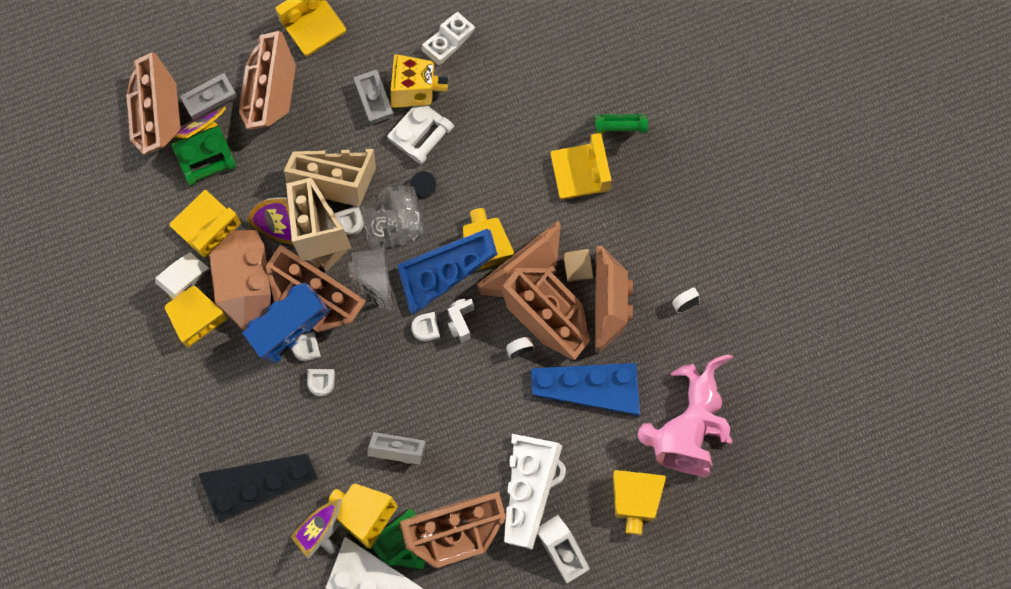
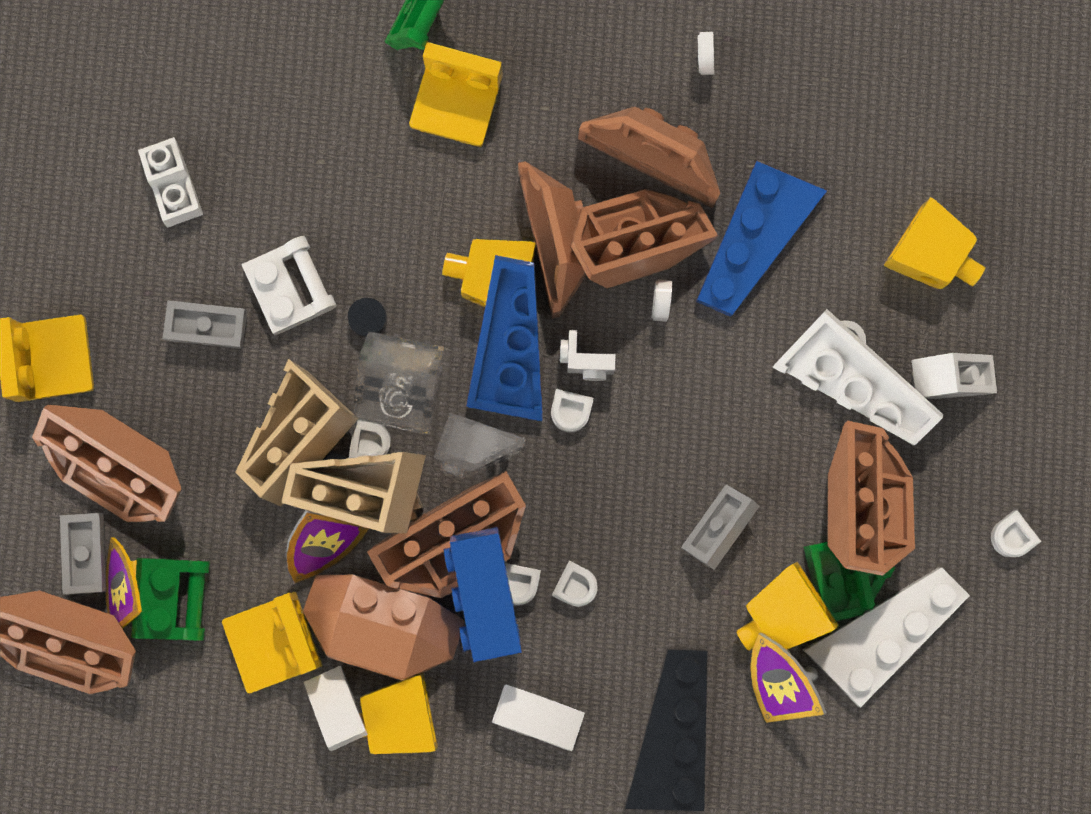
camera: 70 degrees left, 10 degrees up
(230, 395) = (538, 717): none -> white slope
(414, 82) = (214, 257): yellow torso -> none
(577, 265) = (587, 170): tan slope -> none
(680, 440) = (888, 148): bright pink animal -> none

